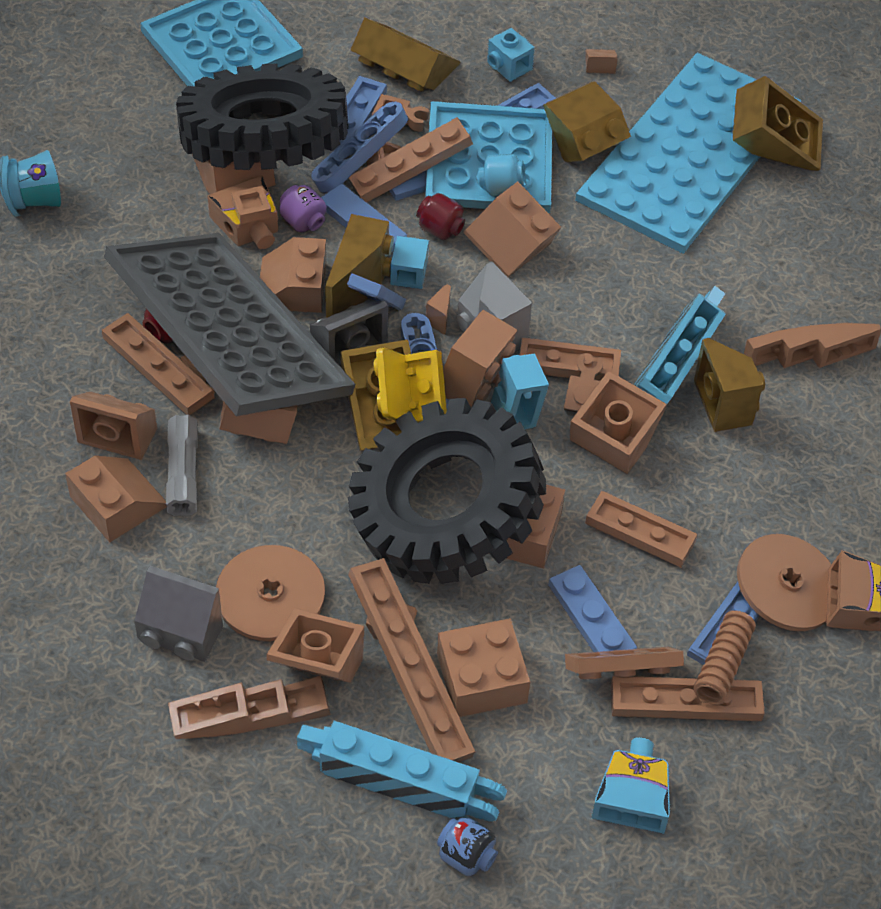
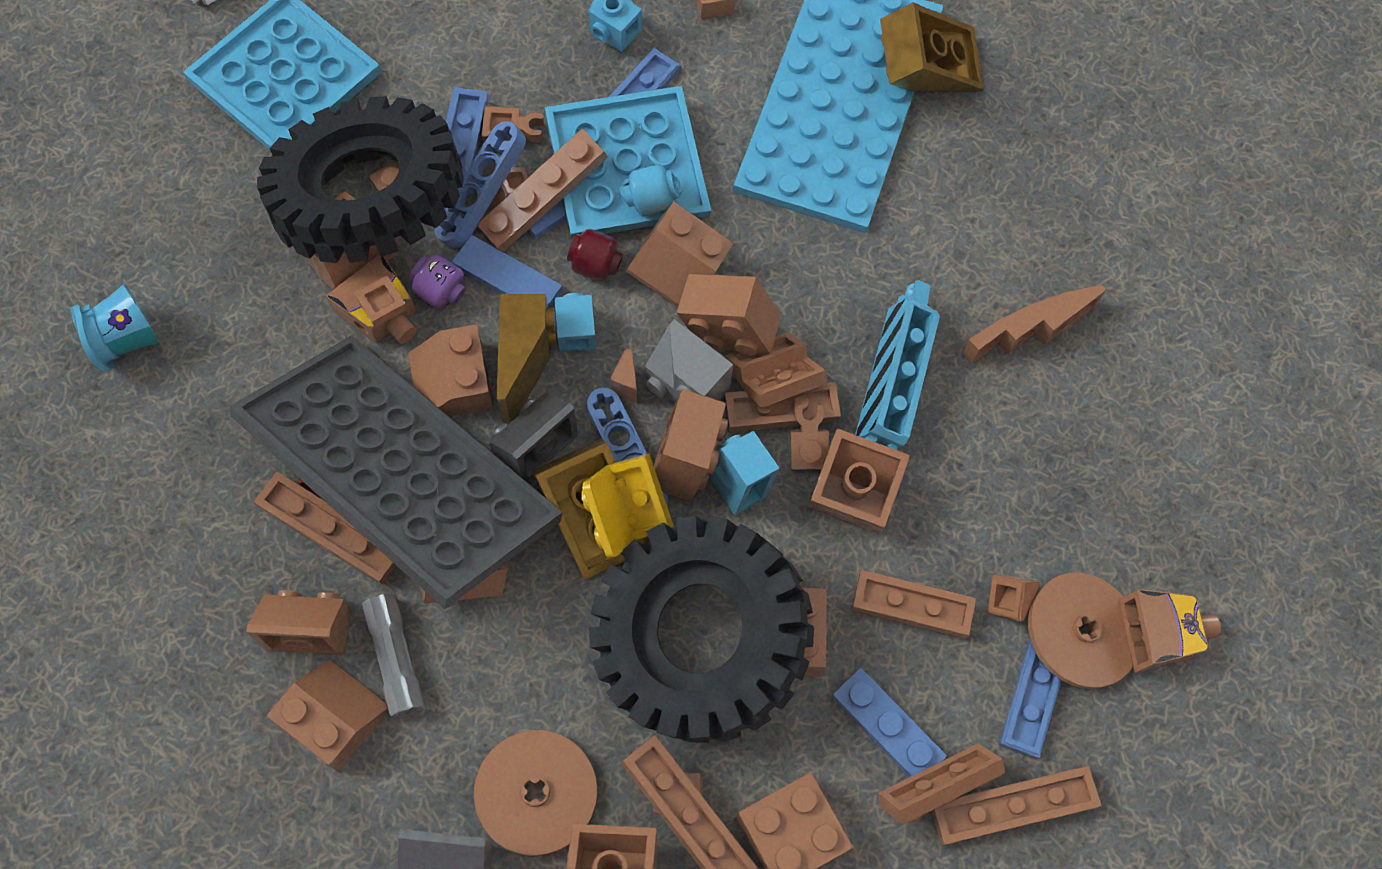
camera: 15 degrees left, 15 degrees up
(376, 291) = (552, 384): medium blue tile -> none
(402, 55) = (495, 47): pearl gold slope -> none
(544, 272) = (729, 313): none -> nougat brick
(571, 329) = (778, 374): none -> nougat slope
(586, 122) = (724, 96): pearl gold slope -> none
(724, 657) = (1047, 754): nougat piece -> none
(728, 386) = (963, 405): pearl gold slope -> none
(730, 540) = (1011, 596): none -> nougat slope

